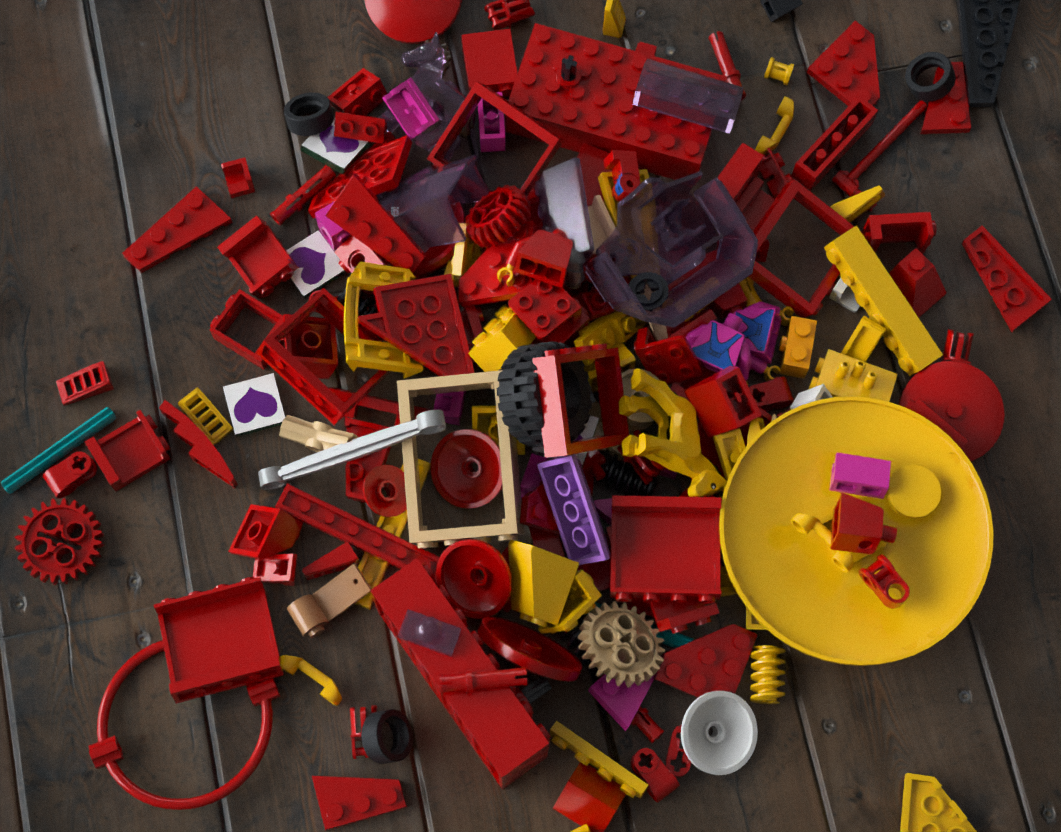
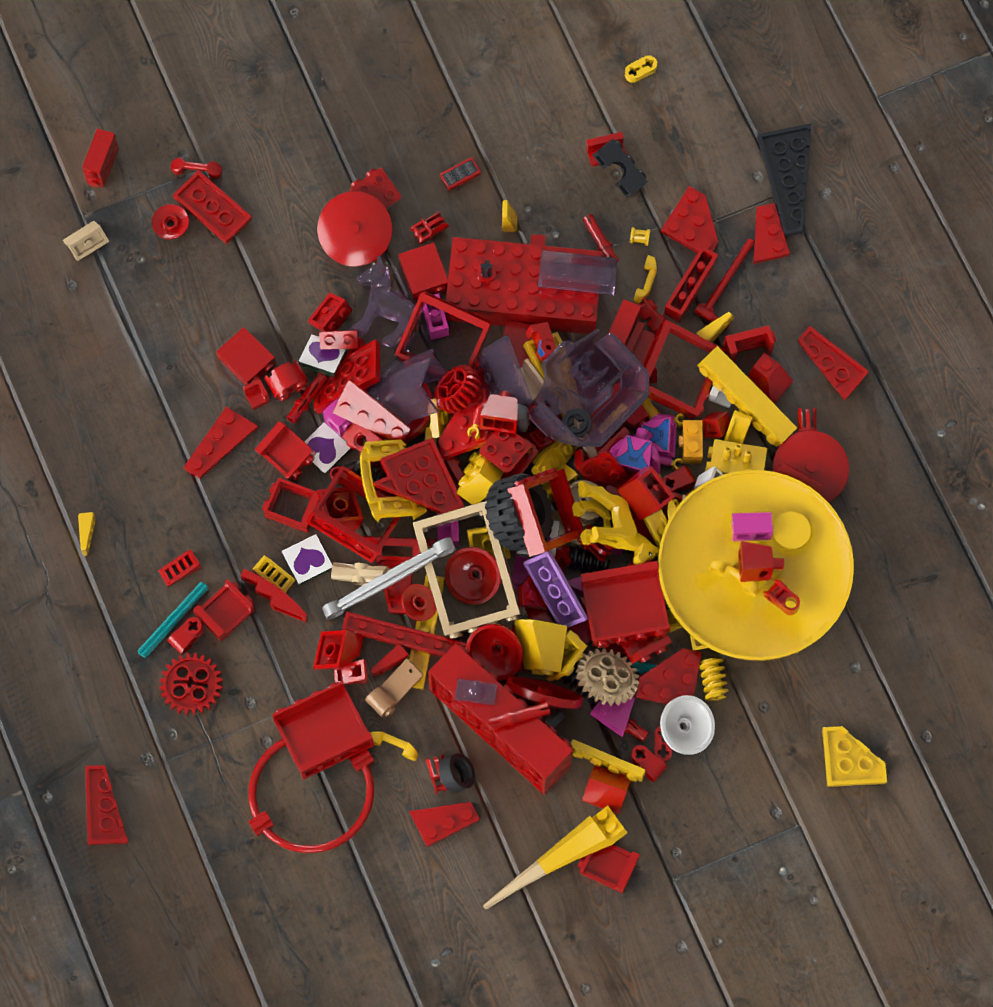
camera: 10 degrees left, 0 degrees up
(236, 128) = (246, 357): none -> red brick
(280, 166) = (286, 380): none -> red brick
(309, 124) = (301, 345): black tyre -> none
(410, 108) = (375, 319): dark pink hinge -> none
(834, 330) = (716, 424): none -> red panel
(924, 62) = (761, 228): black tyre -> none

